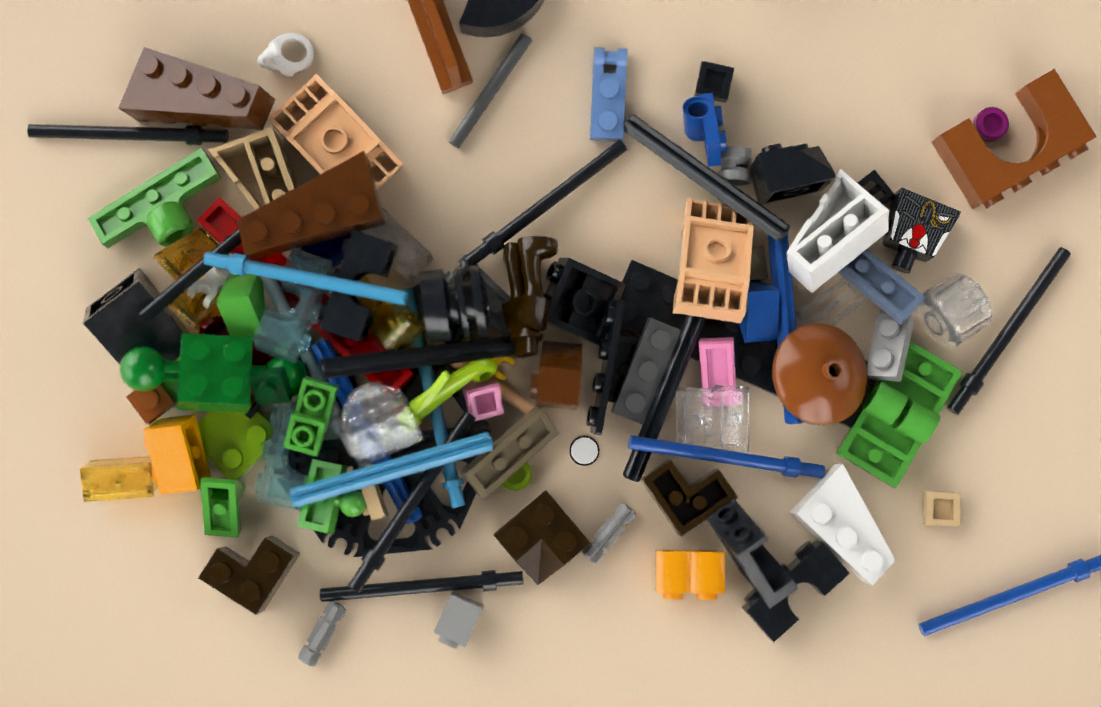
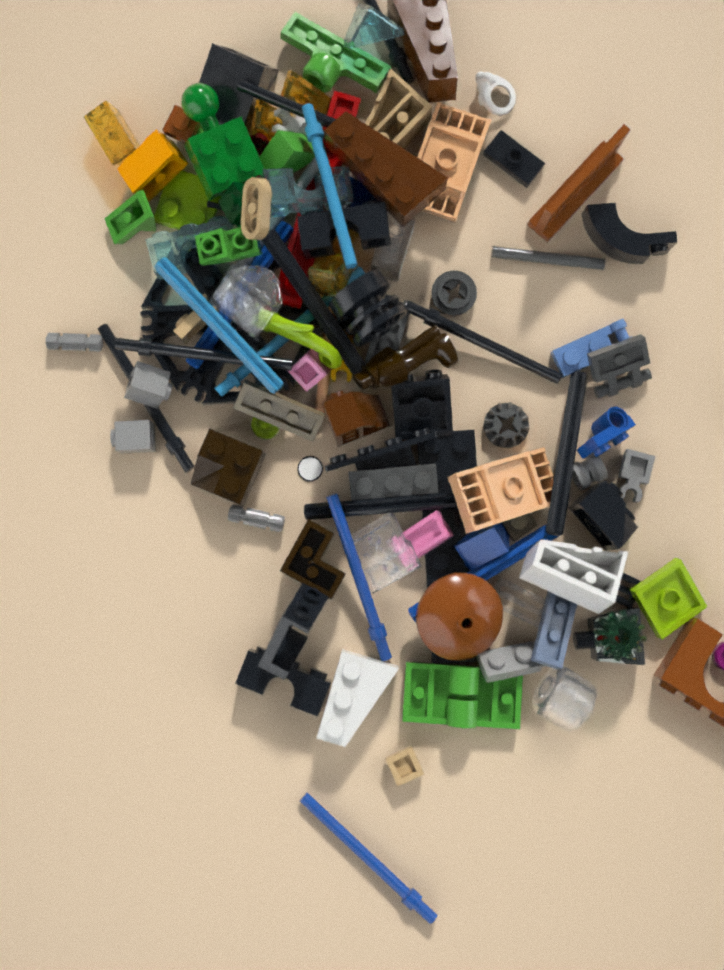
camera: 65 degrees right, 0 degrees up
(150, 149) = (370, 27): none -> clear light blue slope
(252, 581) = (87, 269): dark brown brick -> none
(292, 367) = (256, 208): none -> tan plate
(323, 514) = (161, 294): bright green plate -> none
(367, 71) = (513, 158): none -> black plate
(412, 576) = (148, 385): none -> light grey brick
(481, 192) = (450, 280): none -> dark grey gear
(636, 73) = (619, 359): none -> dark grey plate
(637, 238) = (493, 425): none -> dark grey gear
(690, 573) = (256, 593): light orange brick -> none
(714, 79) = (647, 423): black plate -> none
(757, 116) = (635, 469): none -> light grey plate
(904, 152) = (668, 598): none -> lime plate
(913, 229) = (629, 640): none -> clear green gear
(973, 382) = (515, 742): black bar -> none

